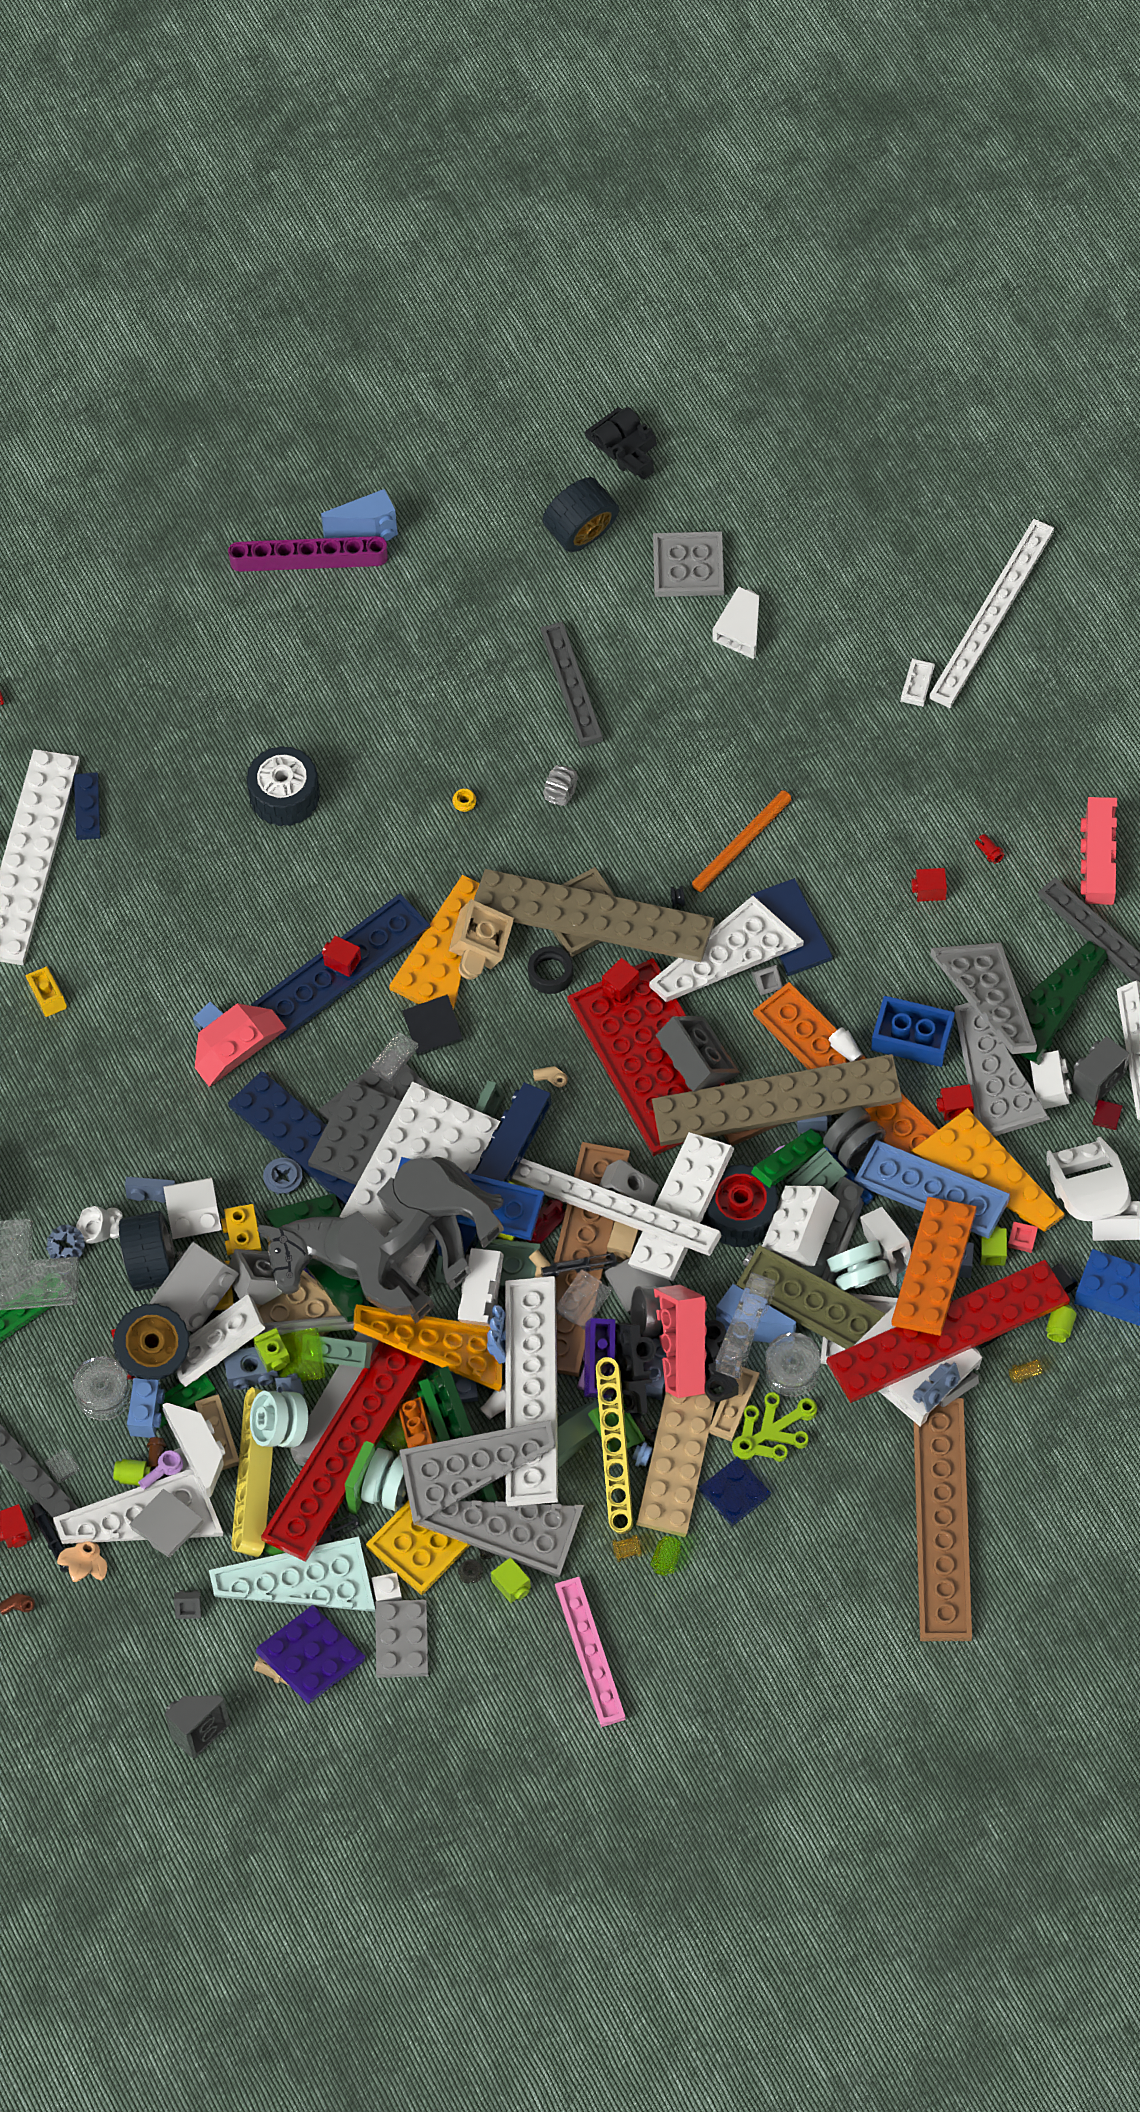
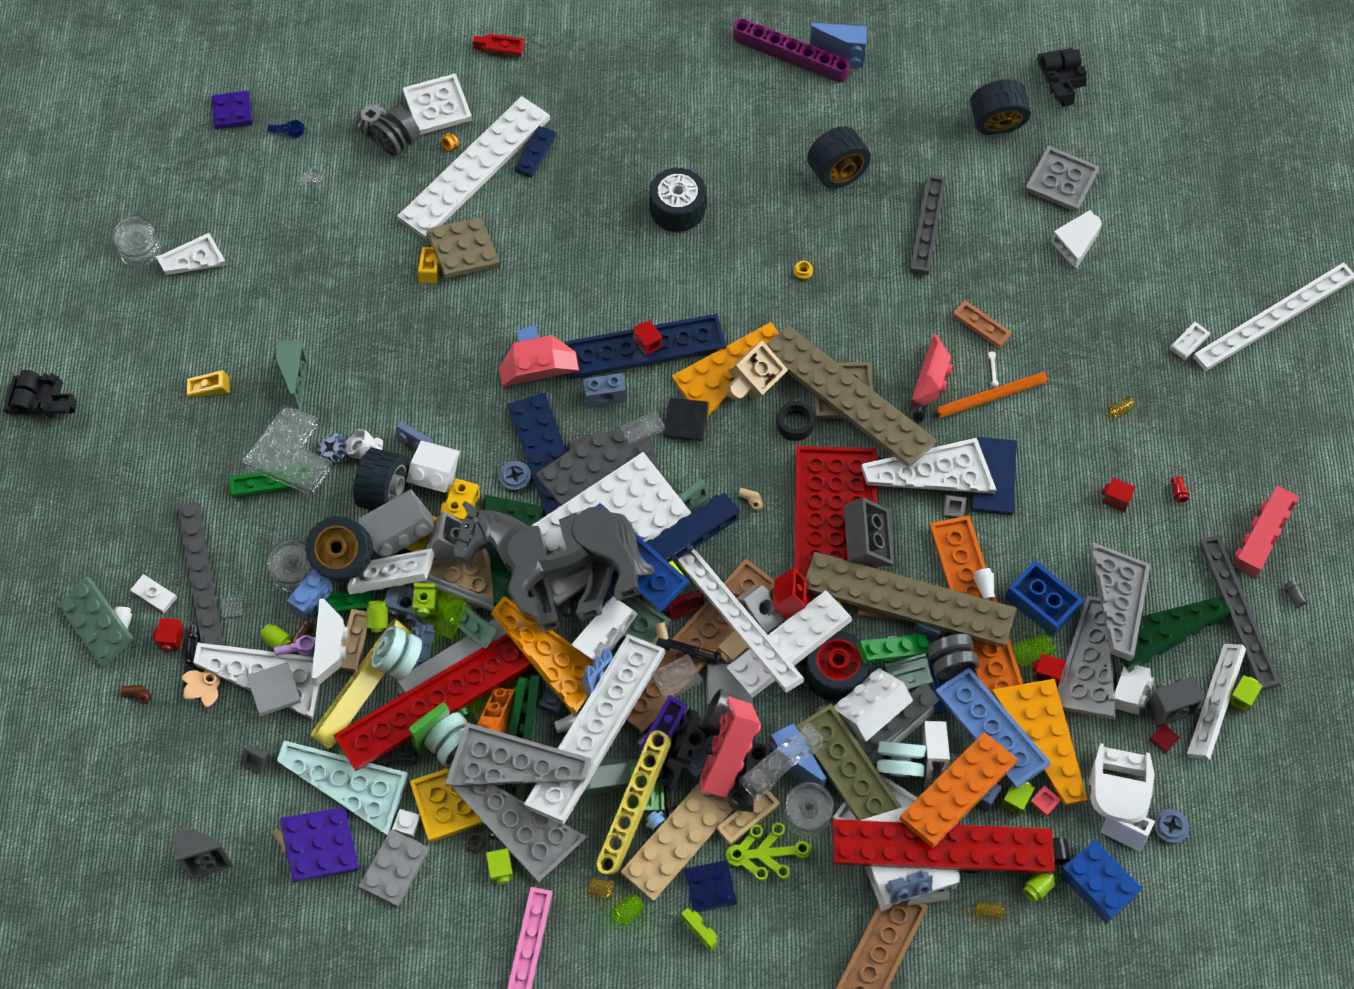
camera: 25 degrees right, 0 degrees up
(73, 954) = (463, 247): none -> dark tan plate
(229, 1394) = (377, 616): none -> lime brick
(326, 1036) = (604, 390): none -> sand blue brick
(436, 655) = (838, 157): none -> black wheel
(560, 785) = (878, 291): light grey gear -> none
(620, 980) = (841, 452): red brick -> none
(651, 1154) = (790, 593): none -> red brick
(667, 847) = (933, 373): none -> coral wedge
(690, 769) = (982, 324): none -> nougat plate
(718, 798) = (992, 355): none -> white hinge
(742, 1535) = (705, 935): none -> lime plate
(882, 792) = (1121, 407): none -> clear yellow pin
(928, 1089) = (1032, 648): none -> clear neon green plate

